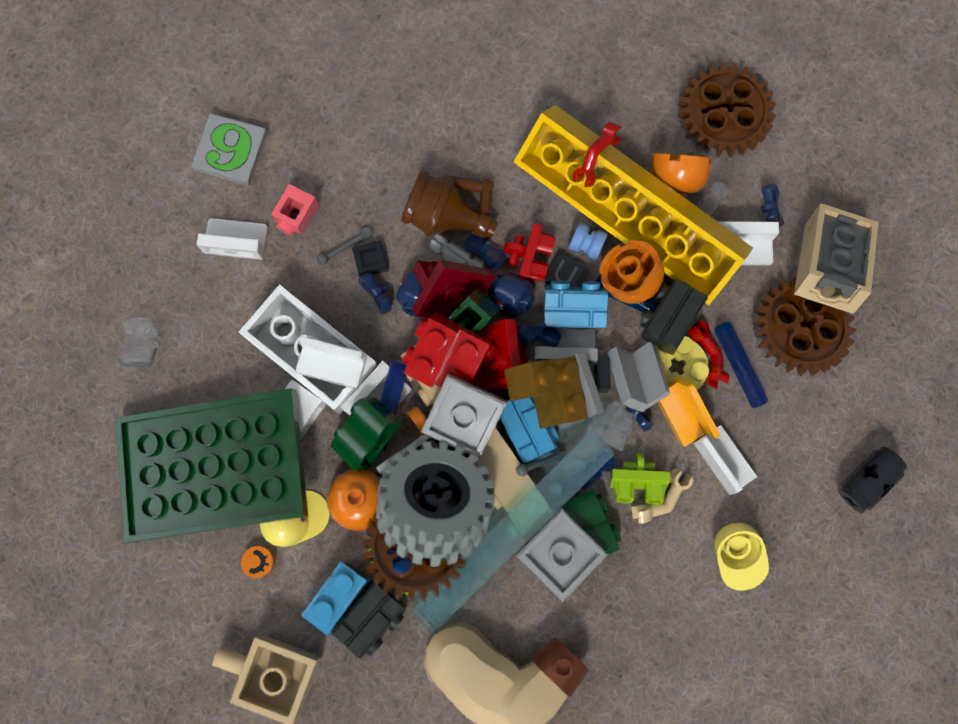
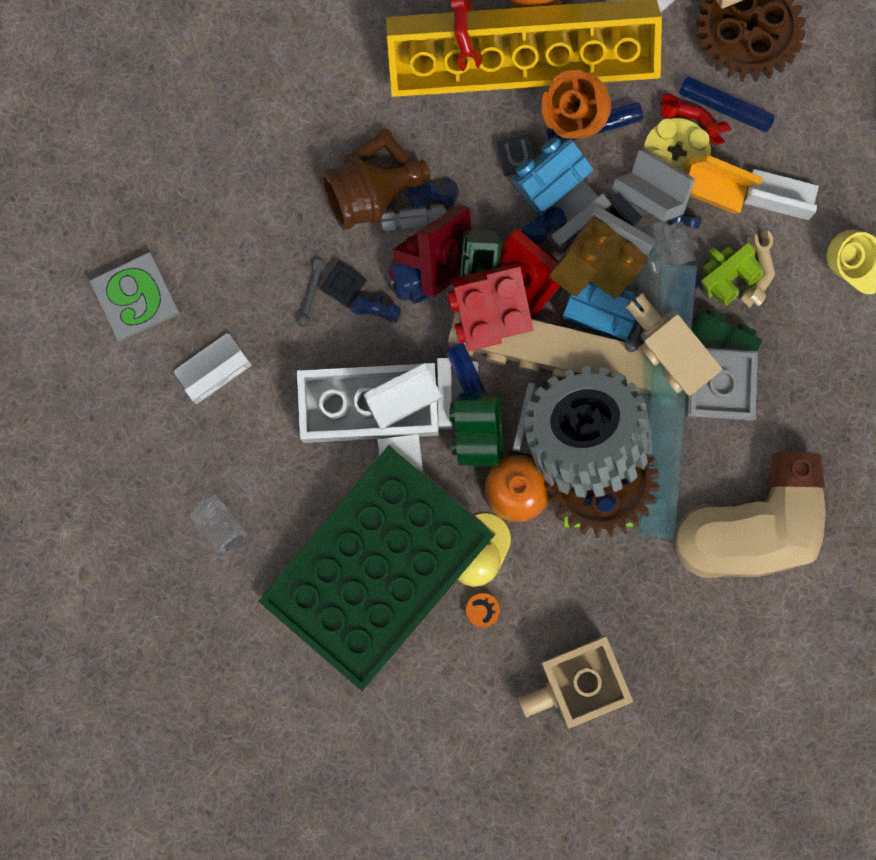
camera: 40 degrees left, 5 degrees up
(294, 201) = (235, 291): coral brick -> none
(335, 597) = (573, 578): dark azure brick -> none
(368, 621) = (615, 572): pearl dark grey brick -> none
(417, 419) = (510, 382): orange tile -> none
(464, 415) = (548, 342): light grey tile -> none
(511, 294) = (490, 209): dark blue head -> none
(538, 242) = (483, 175): red hips -> none
(544, 497) = (675, 346): none -> tan brick
(588, 241) = (512, 109): medium blue wheel -> none
(674, 315) = (640, 112): pearl dark grey brick -> none

